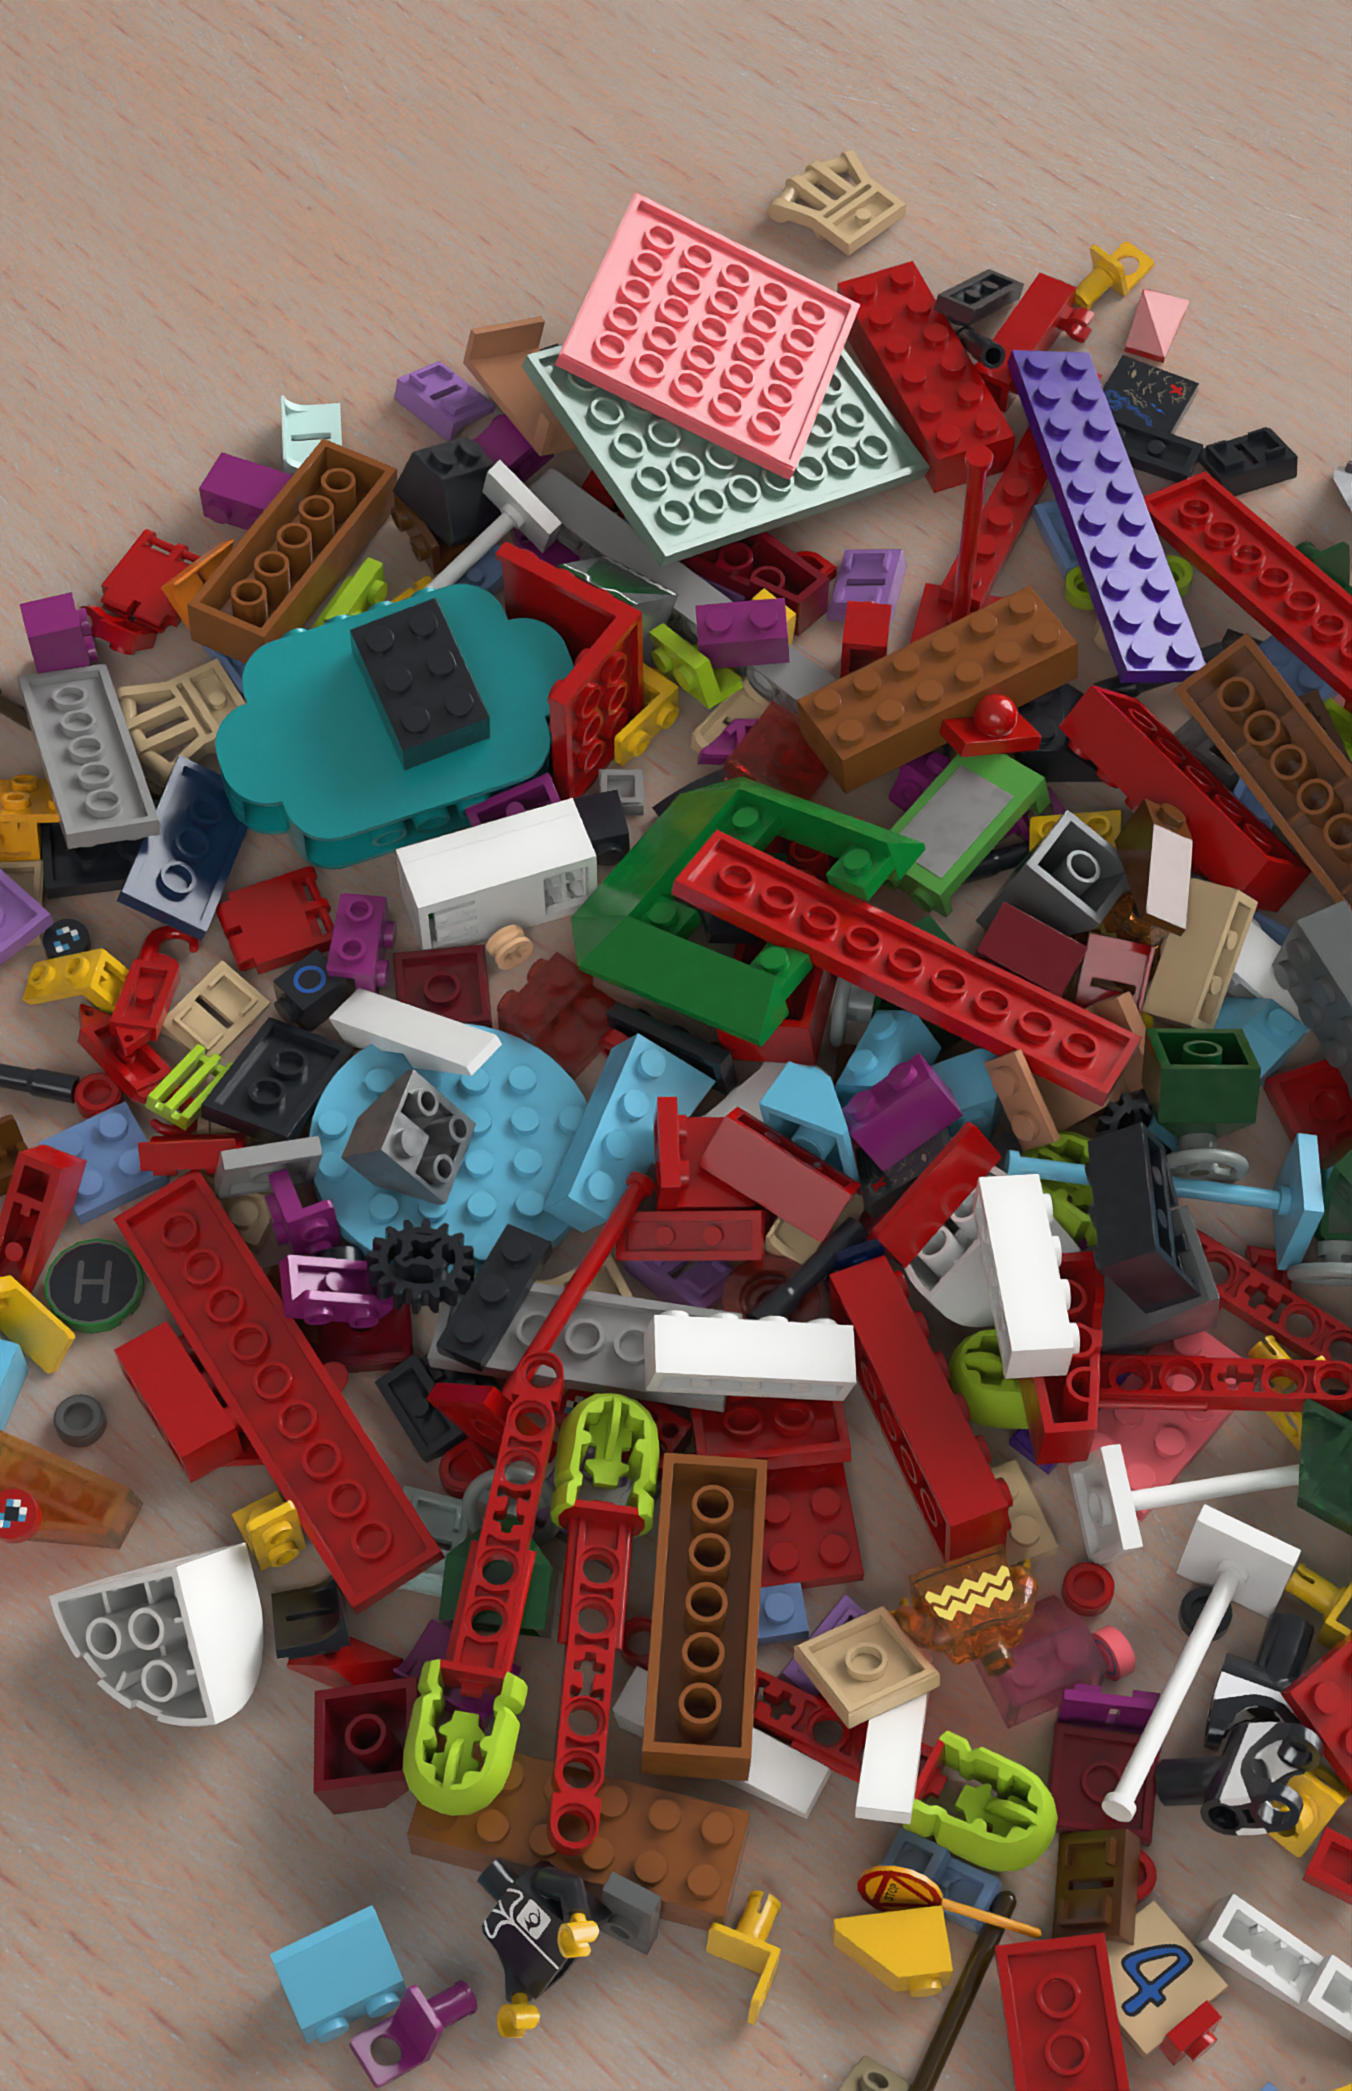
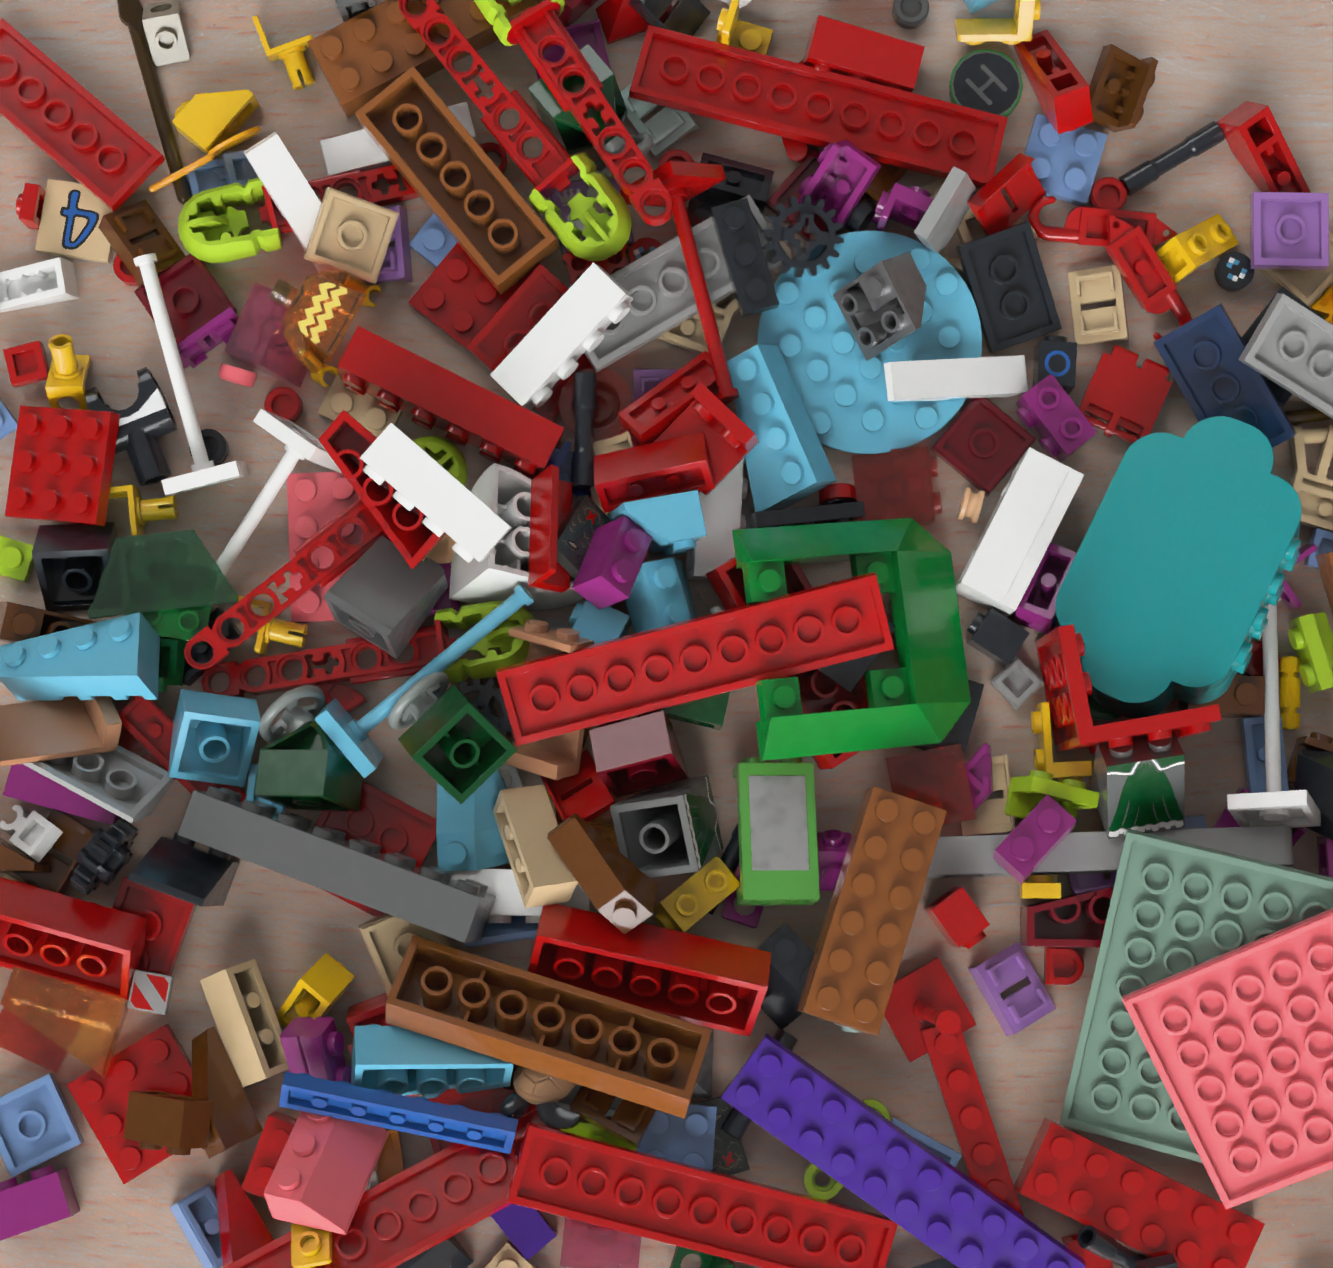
camera: 140 degrees right, 25 degrees up
(207, 1066) = (1062, 269): lime tile -> none
(420, 683) = (1172, 575): black brick -> none
(992, 730) = (807, 904): red tile -> none
(1134, 1219) = (407, 596): black wedge -> none
(1242, 1781) = (105, 348): black connector -> none

